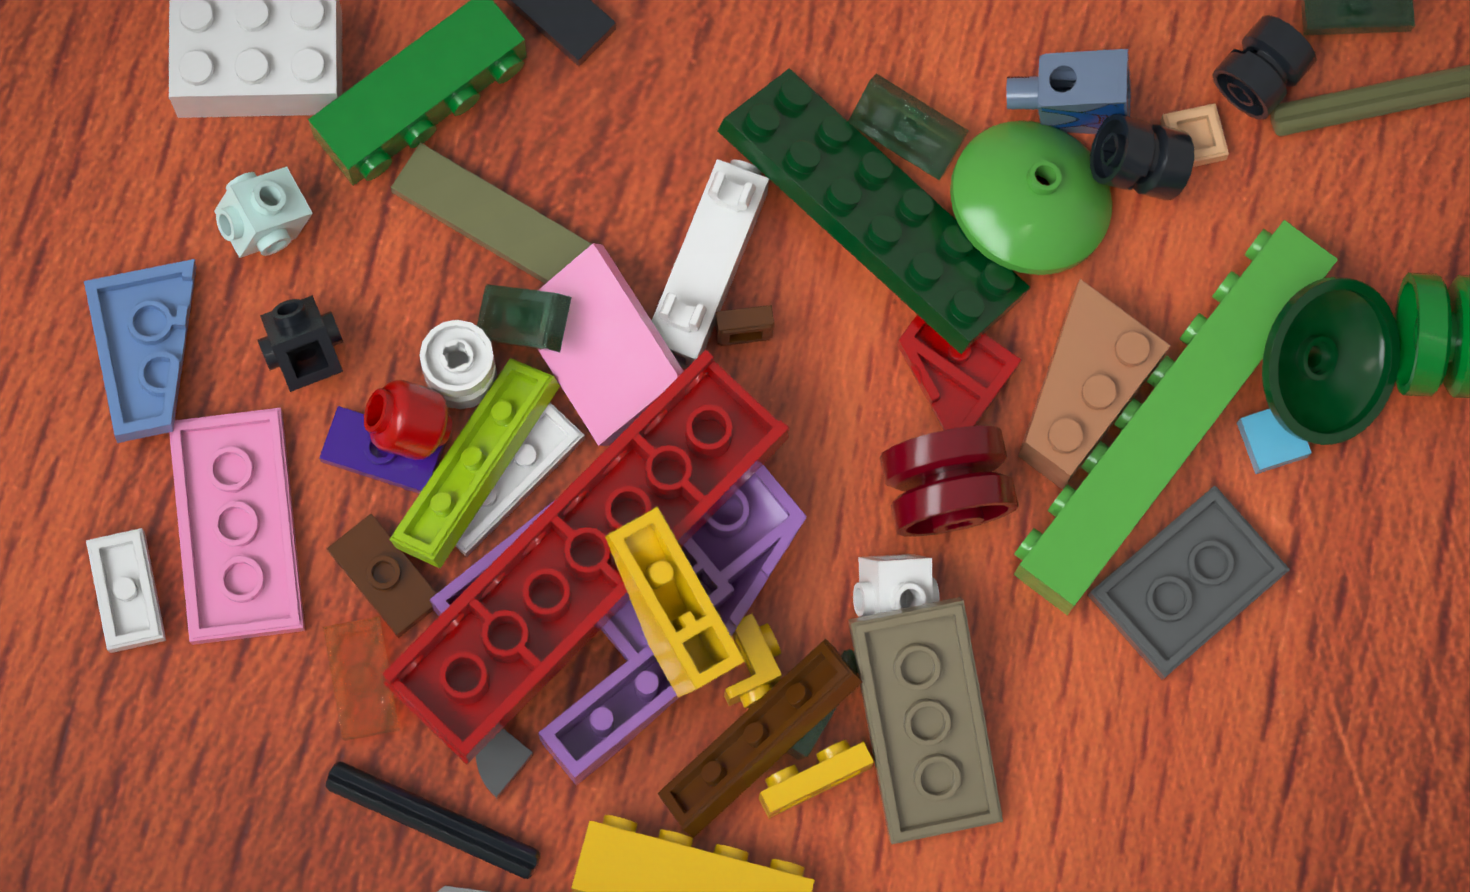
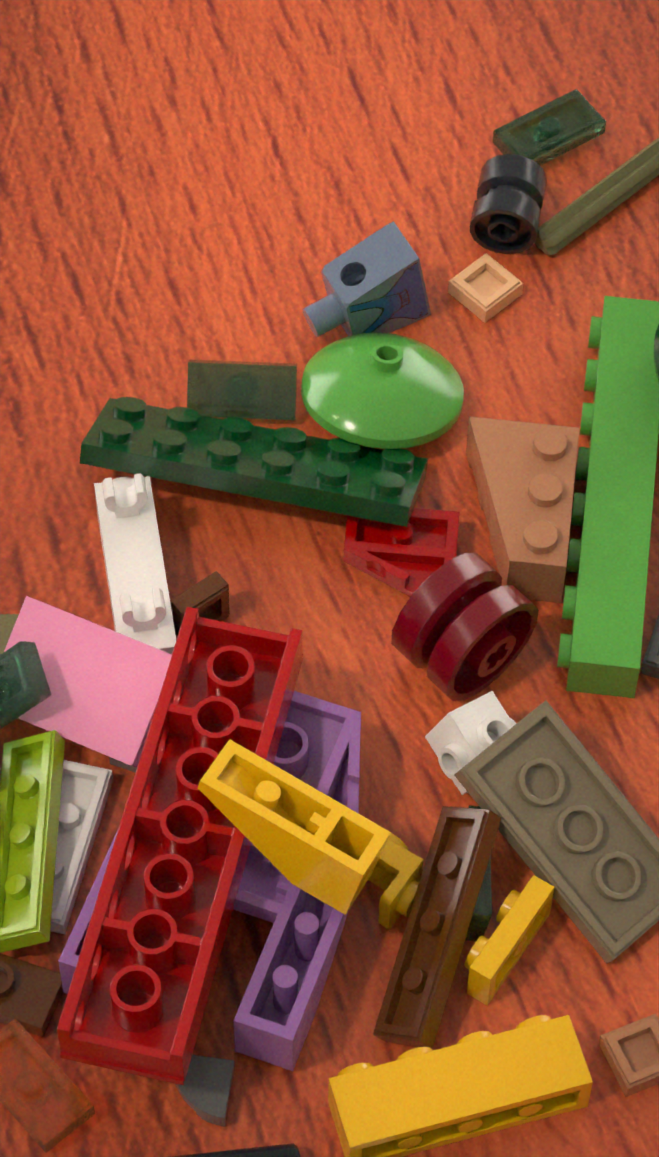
camera: 25 degrees left, 20 degrees down
(1142, 157) = (455, 309): black wheel -> none

